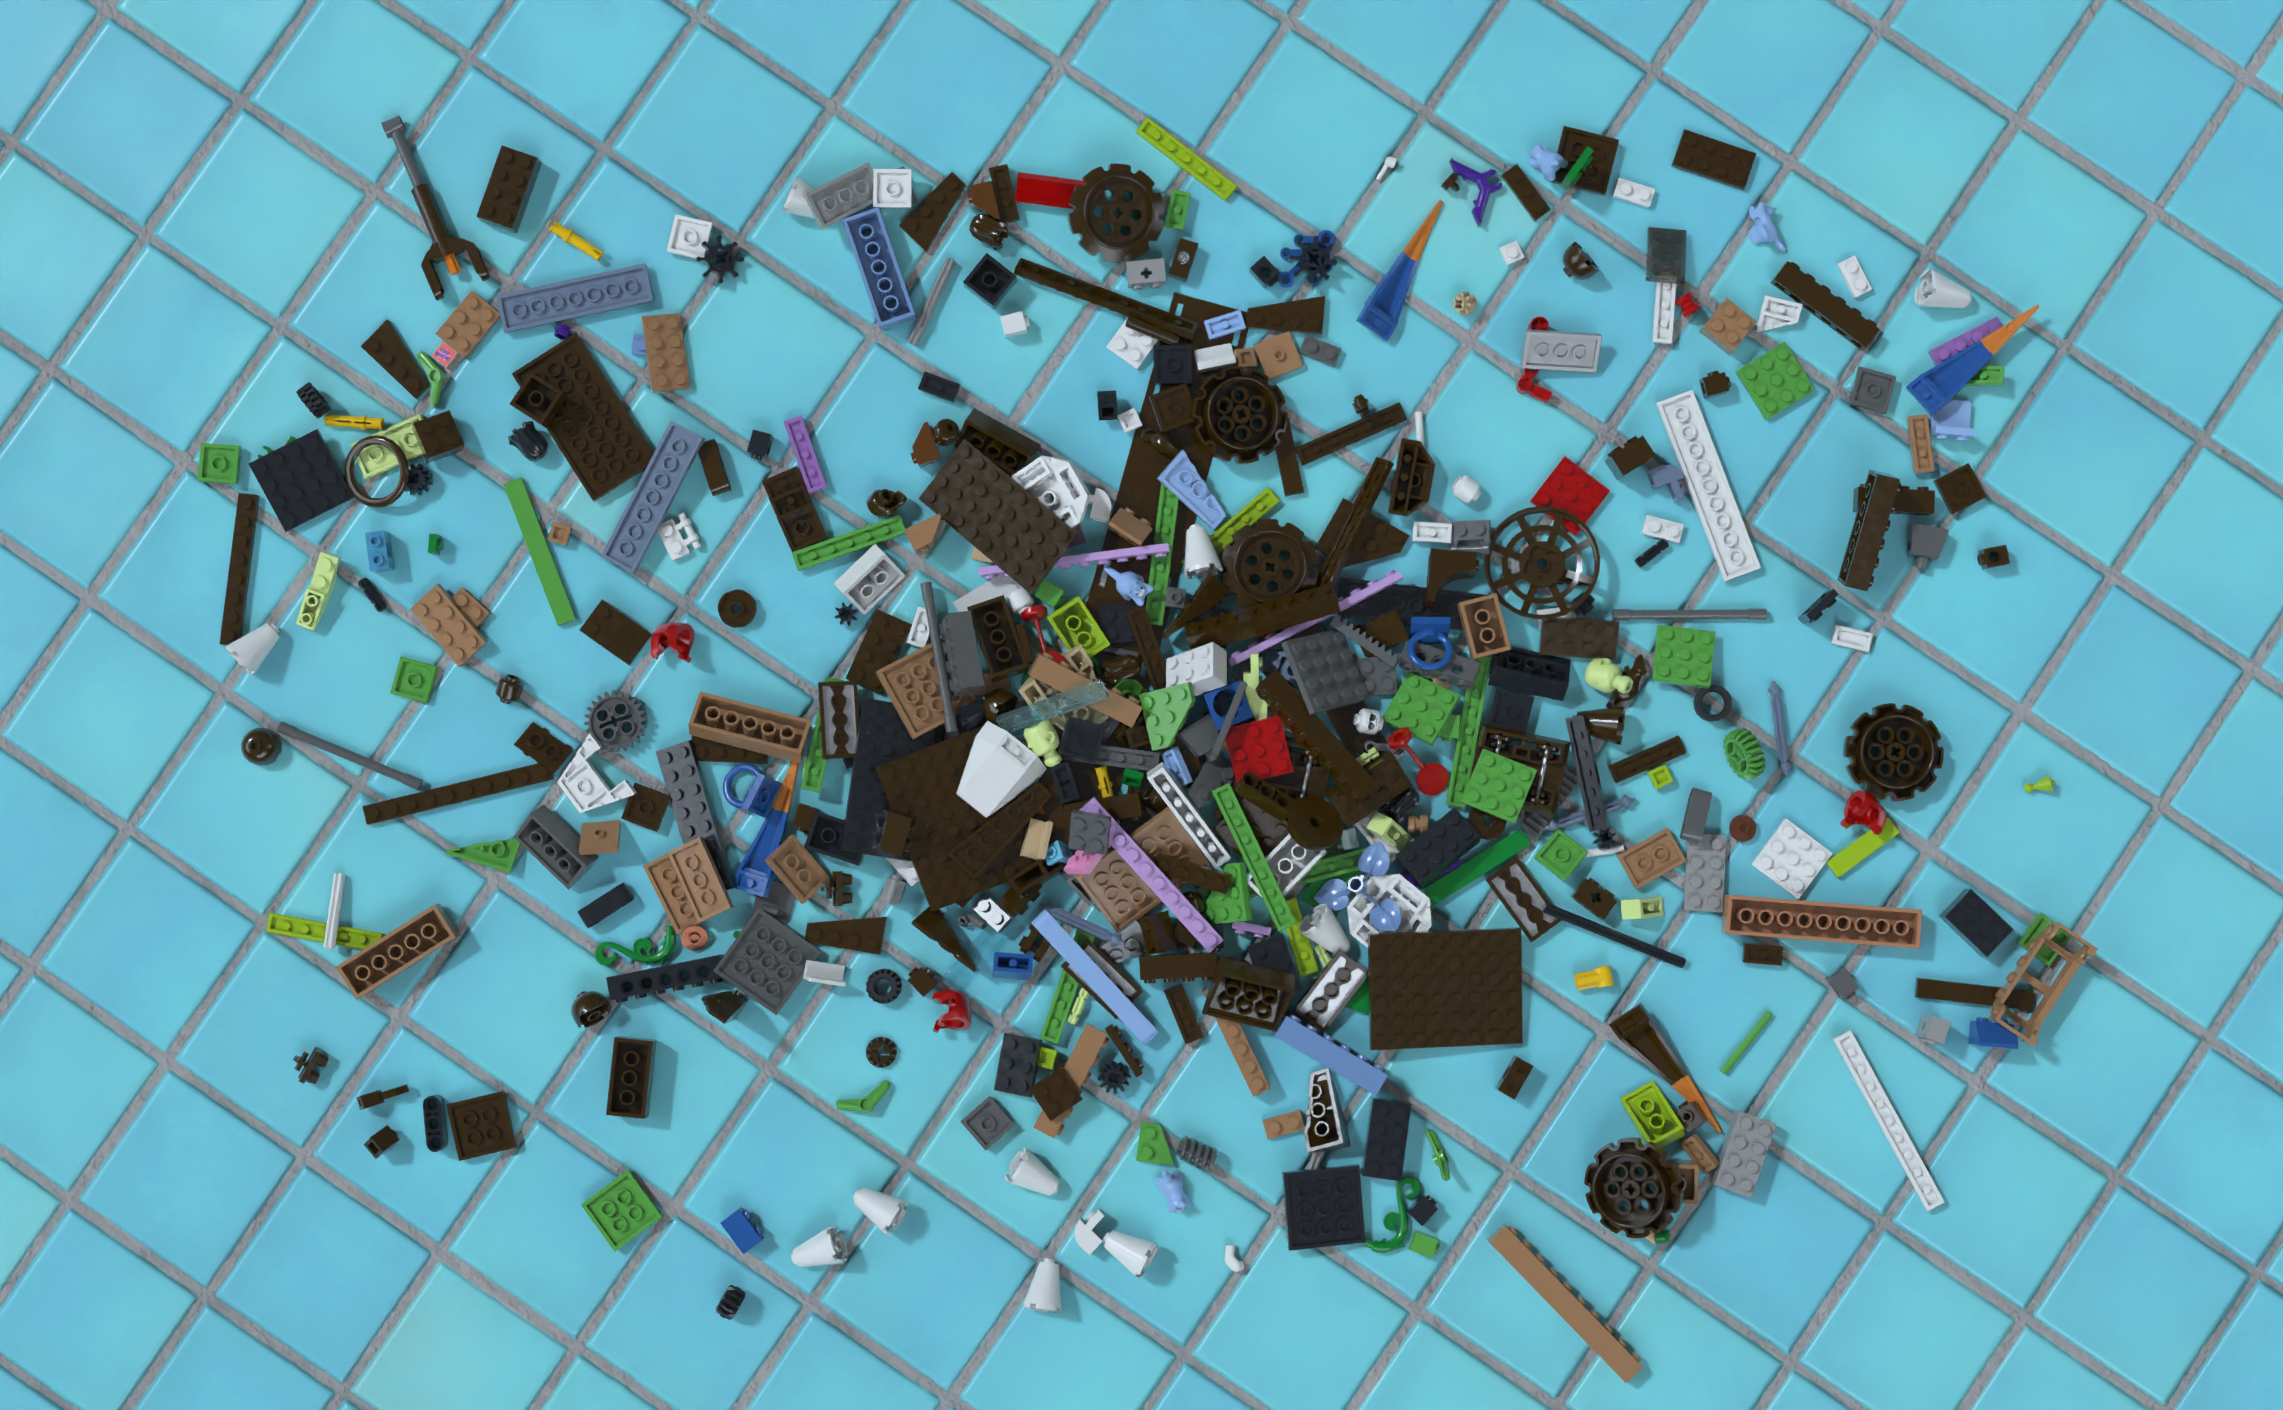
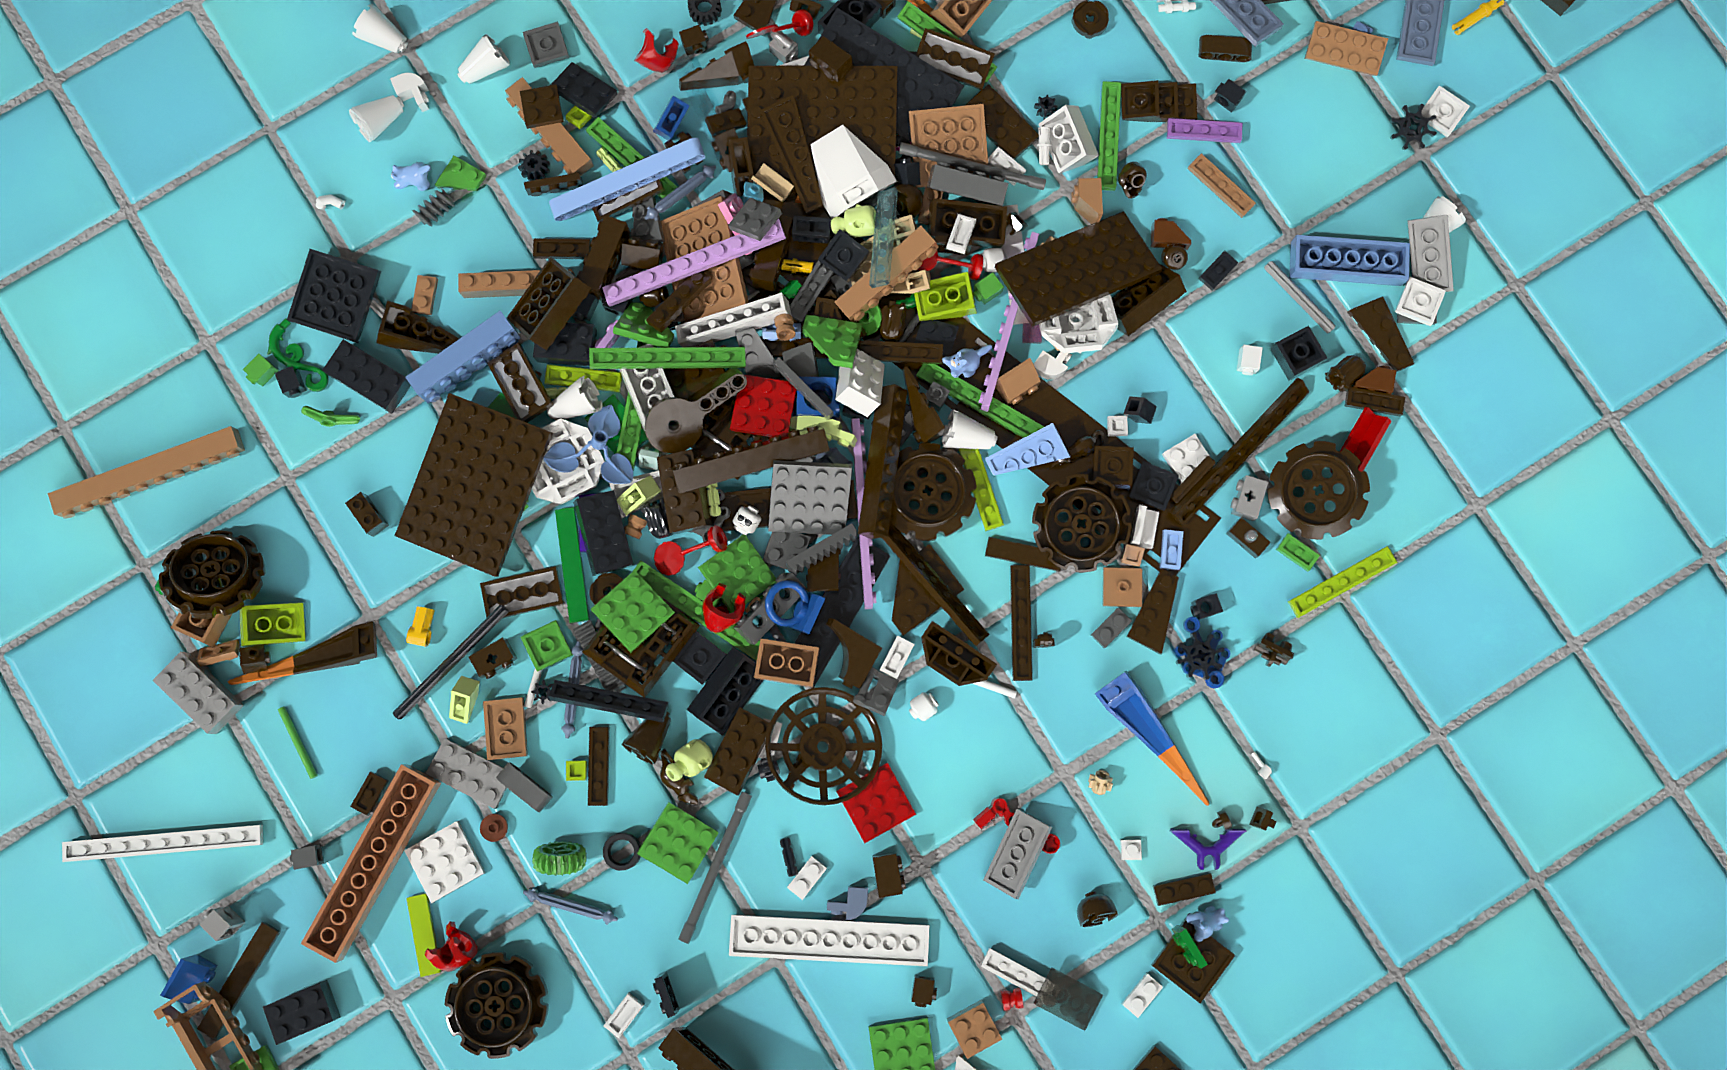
camera: 110 degrees right, 5 degrees down
(853, 417) = (1221, 185): none -> medium nougat plate
(862, 883) = (801, 23): none -> red piece
(885, 600) = (1044, 144): none -> white axle
(973, 594) = (1016, 222): none -> dark brown tile
(1016, 636) = (961, 233): none -> white tile
(1176, 762) = (784, 326): none -> medium nougat wheel
(1280, 198) = (1273, 652): none -> dark brown hips
(1434, 148) = (1262, 819): none -> dark brown tile
(1470, 707) = (719, 618): none -> red piece

